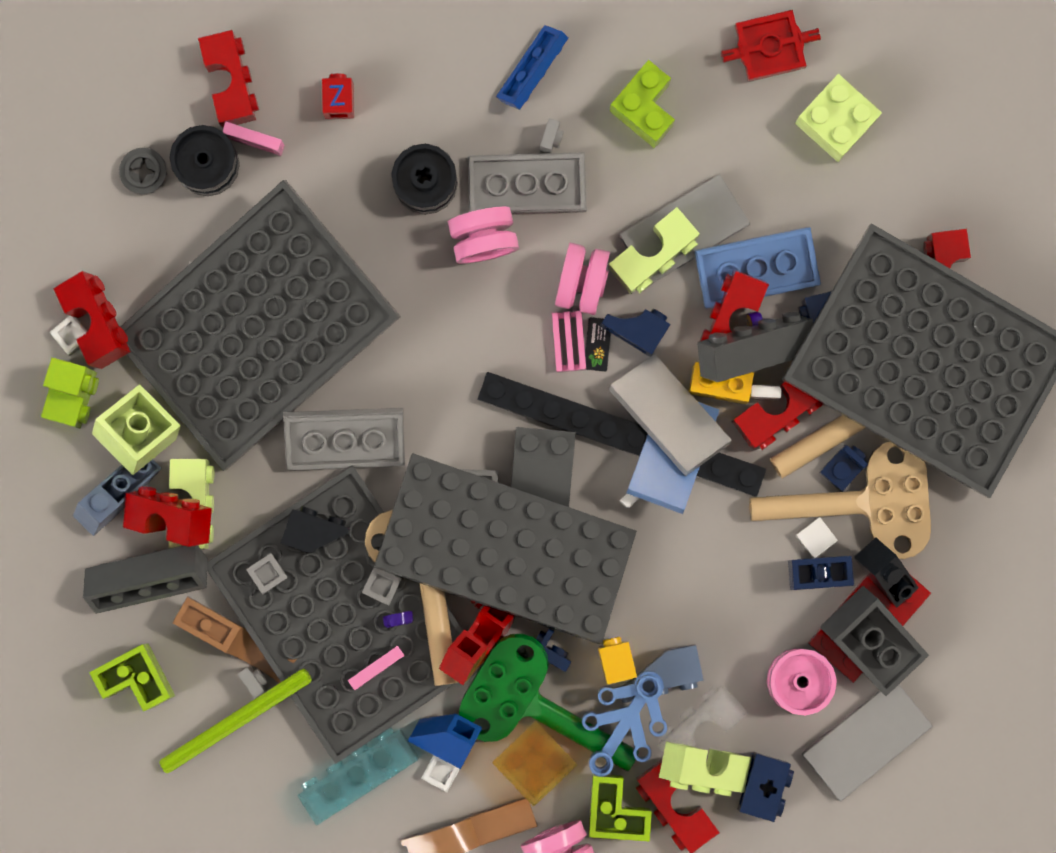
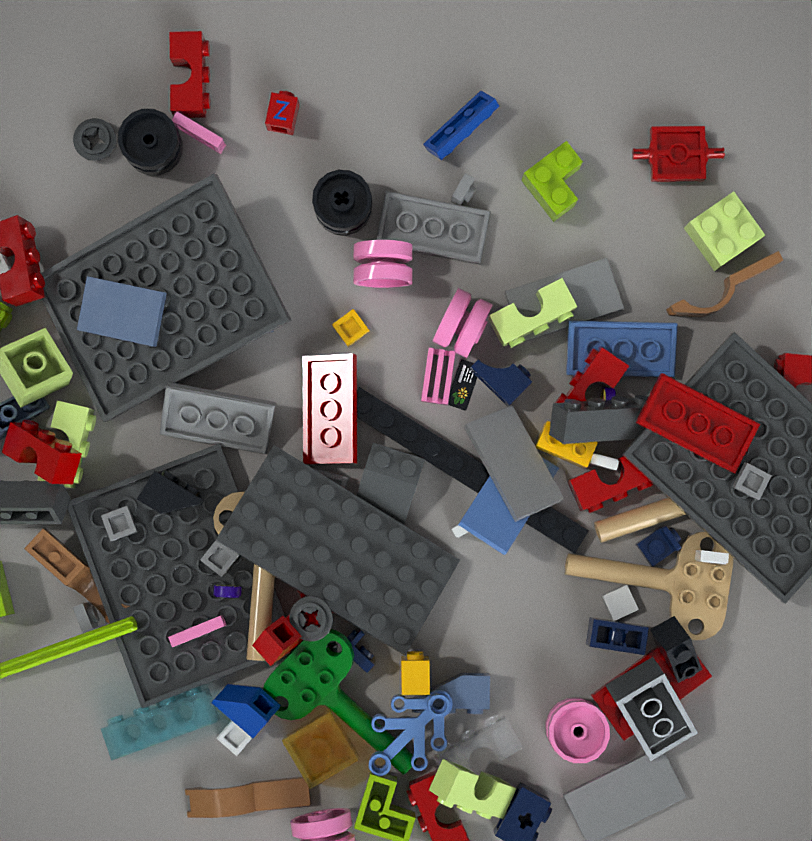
camera: 10 degrees right, 0 degrees up
(217, 348) = (121, 311): none -> sand blue tile
(461, 402) = (330, 409): none -> plate
(463, 310) = (350, 327): none -> yellow tile
(508, 621) = (299, 619): none -> dark grey gear
(814, 210) = (683, 308): none -> medium nougat piece
(854, 328) = (697, 423): none -> red tile
(901, 466) = (711, 557): none -> white tile
(924, 376) = (751, 481): none -> light grey plate

